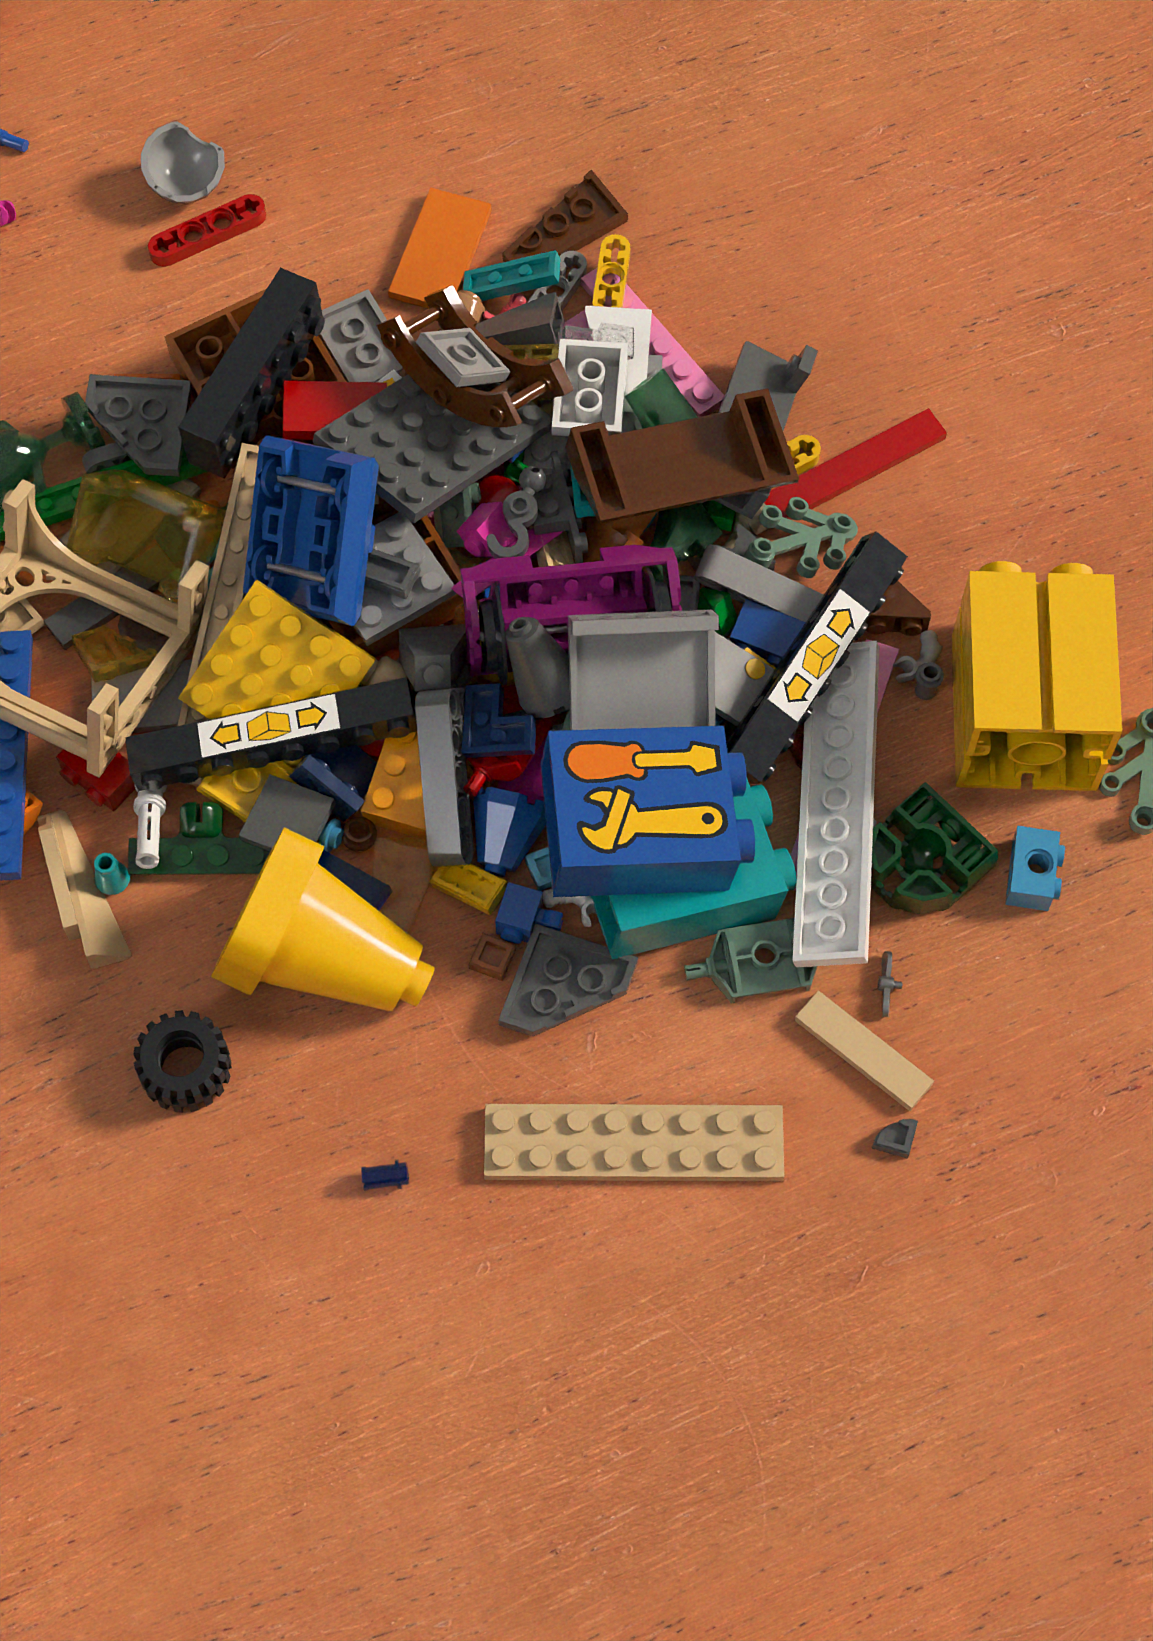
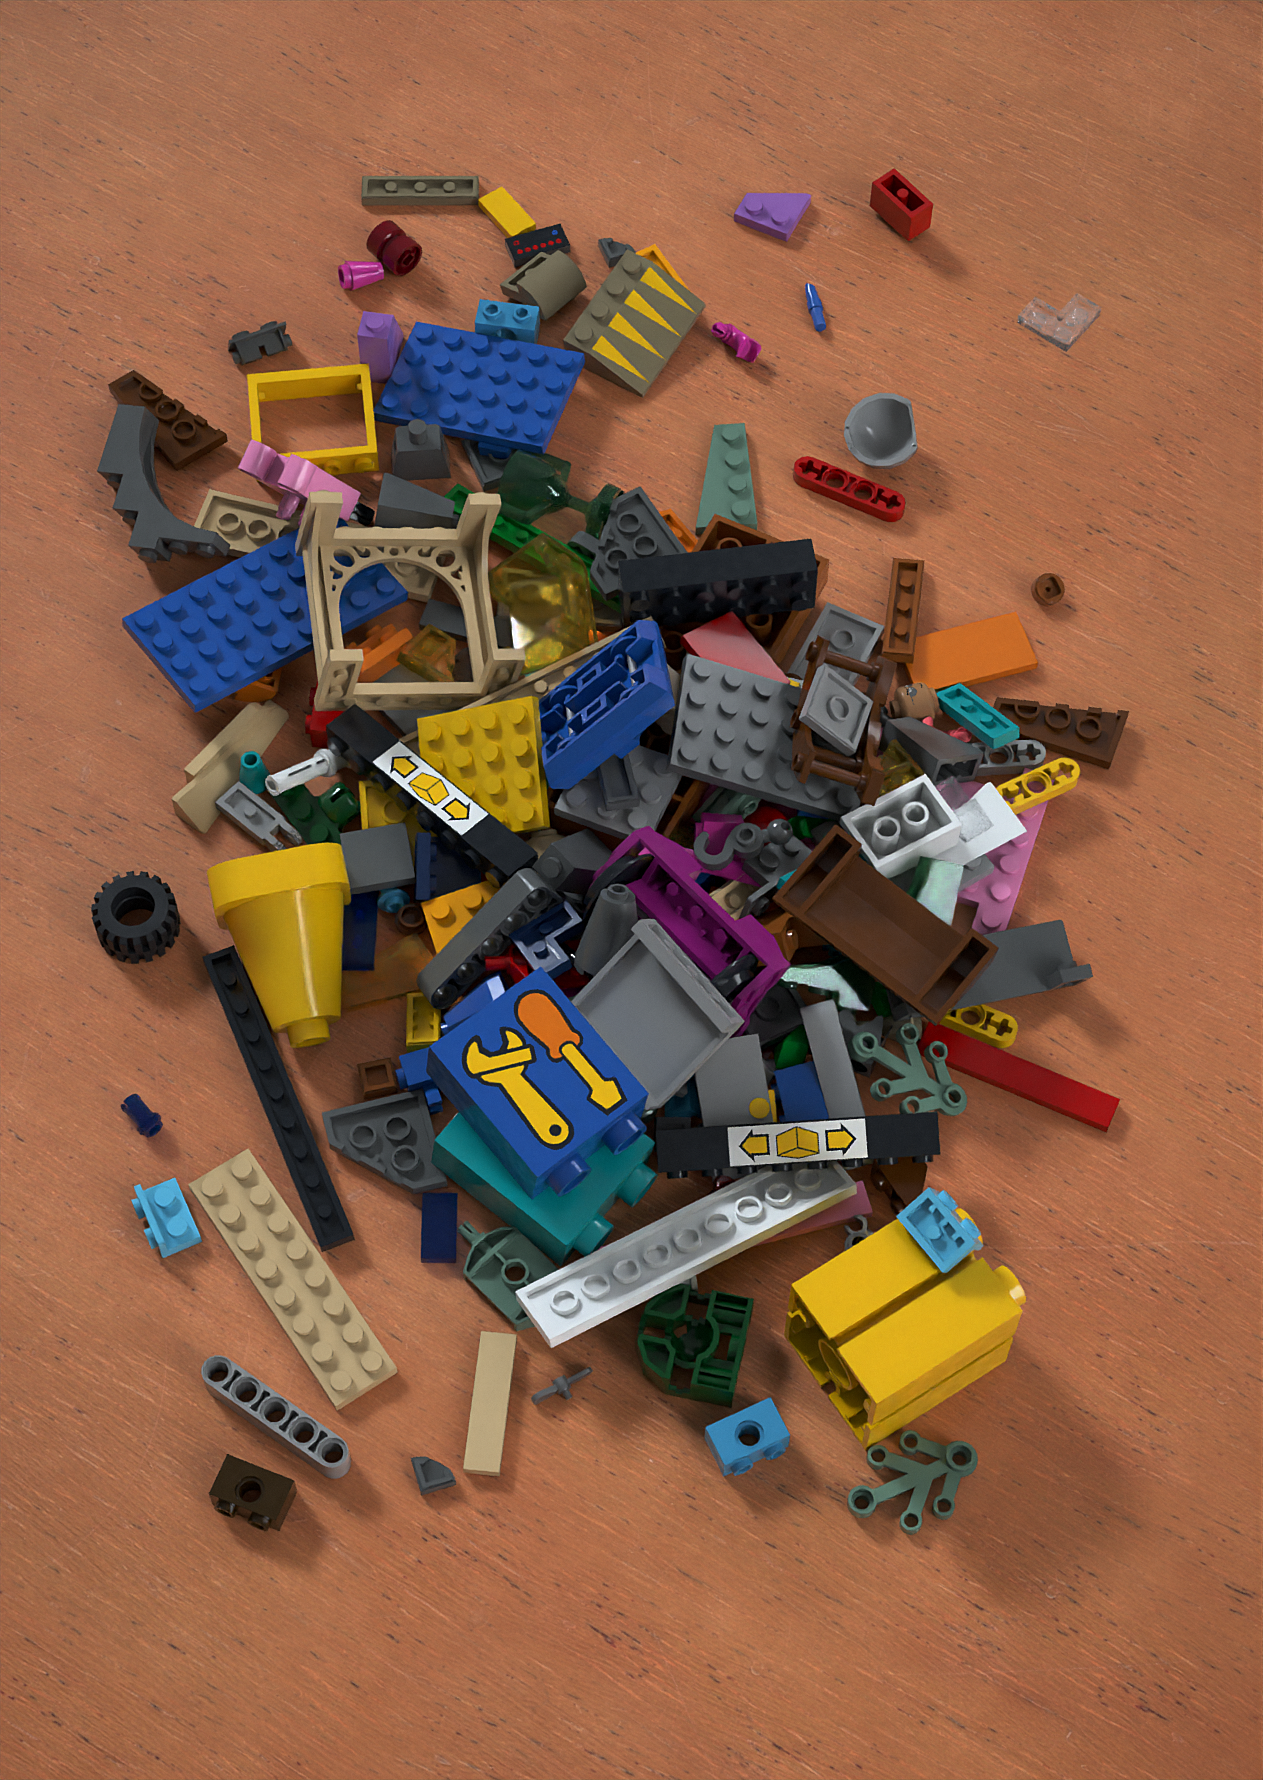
camera: 55 degrees right, 5 degrees down
(69, 686) = (380, 651): none -> orange brick
(121, 314) = (728, 479): none -> sand green wing
(157, 899) = (256, 817): none -> light grey hinge
(362, 266) = (903, 610): none -> dark orange tile
(428, 151) = (1047, 589): none -> dark orange tile
(451, 1048) = (278, 1099): none -> black plate
(501, 1214) = (168, 1217): none -> medium azure bracket
(673, 992) = (439, 1228): none -> clear blue tile
(772, 1217) = (283, 1431): none -> light grey beam
(831, 1274) = (239, 1477): none -> dark brown brick
(1009, 584) = (940, 1229): none -> medium azure bracket

